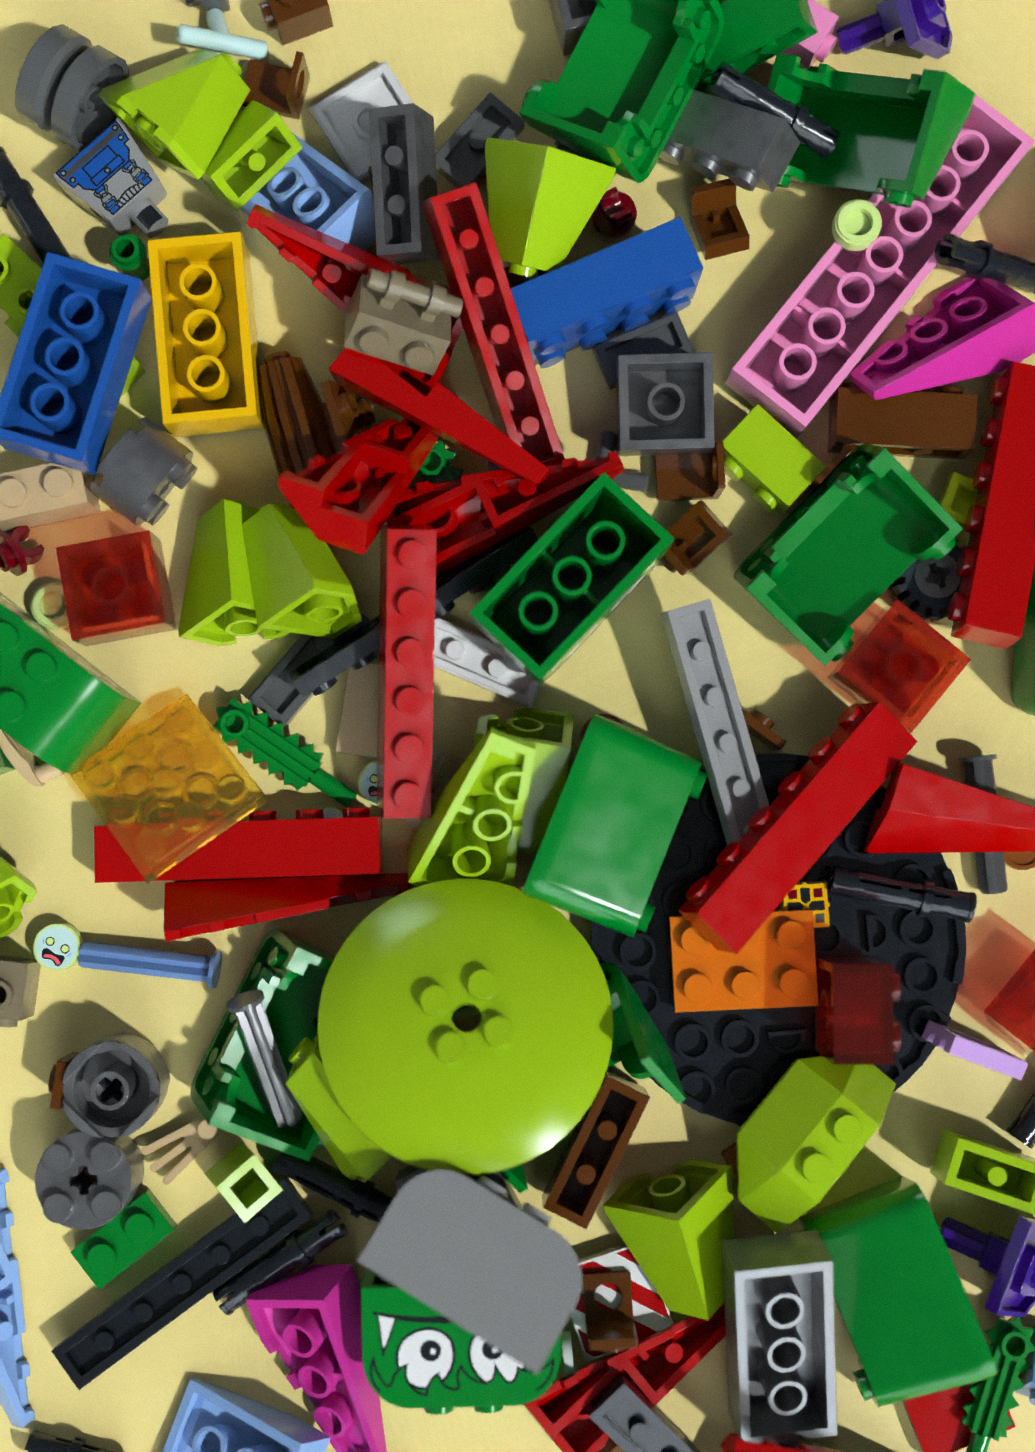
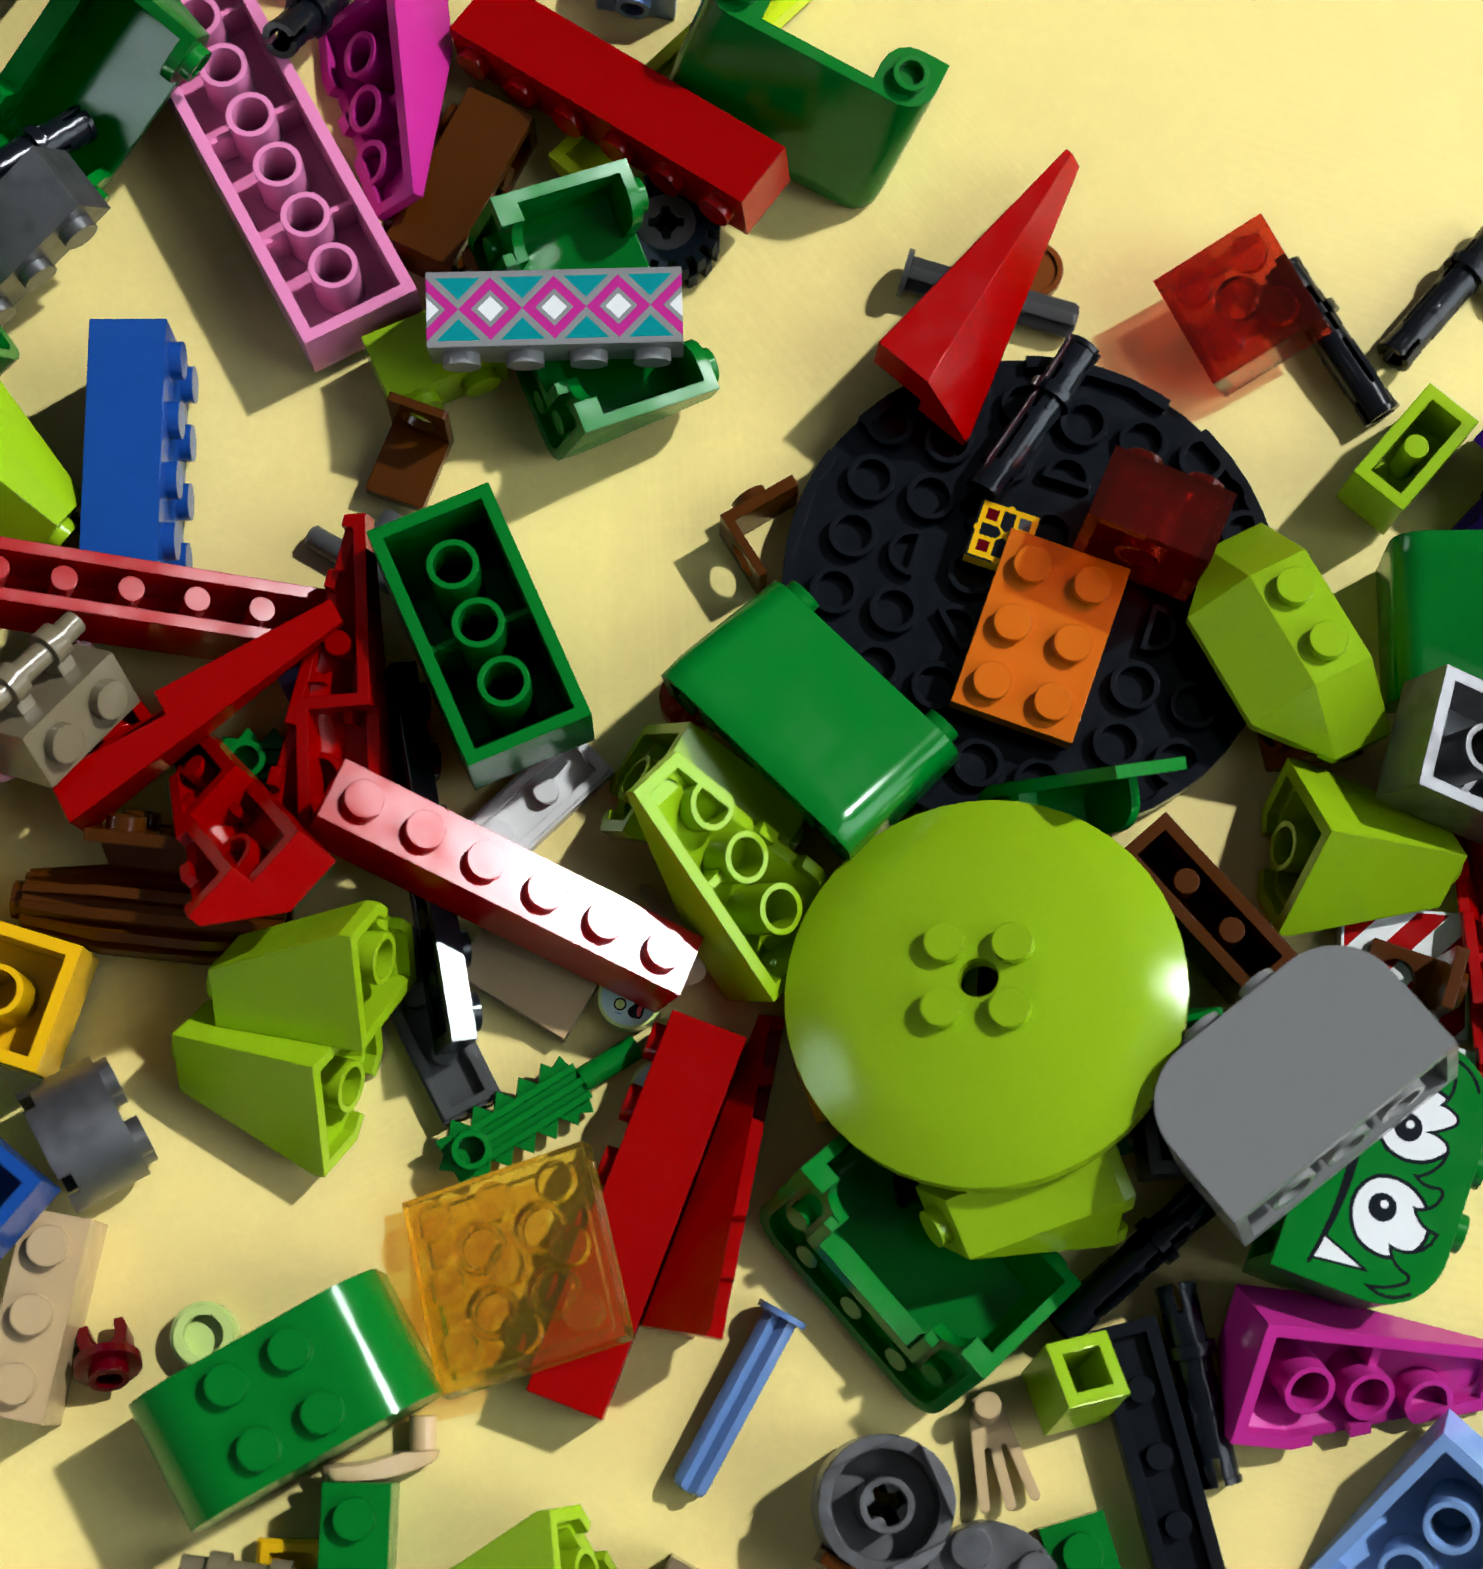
camera: 70 degrees left, 10 degrees down
(57, 946) = (664, 1518): tile -> none
(116, 588) = (222, 1232): clear red brick -> none
(265, 1056) = (924, 1283): dark grey axle -> none
(614, 214) = (45, 409): dark red plate -> none
(658, 336) = (226, 452): dark grey tile -> none
(665, 403) = (308, 445): flat silver brick -> none
(696, 538) = (498, 467): reddish brown bracket -> none
(716, 715) = (762, 543): light grey plate -> none
(717, 219) = (107, 290): reddish brown bracket -> none
(796, 826) = (903, 500): red brick -> none
(823, 531) = (554, 317): none -> brick
(856, 225) = (200, 128): yellowish green tile -> none
(900, 665) = (760, 311): clear red brick -> none
(974, 1050) = (1255, 415): lavender tile -> none

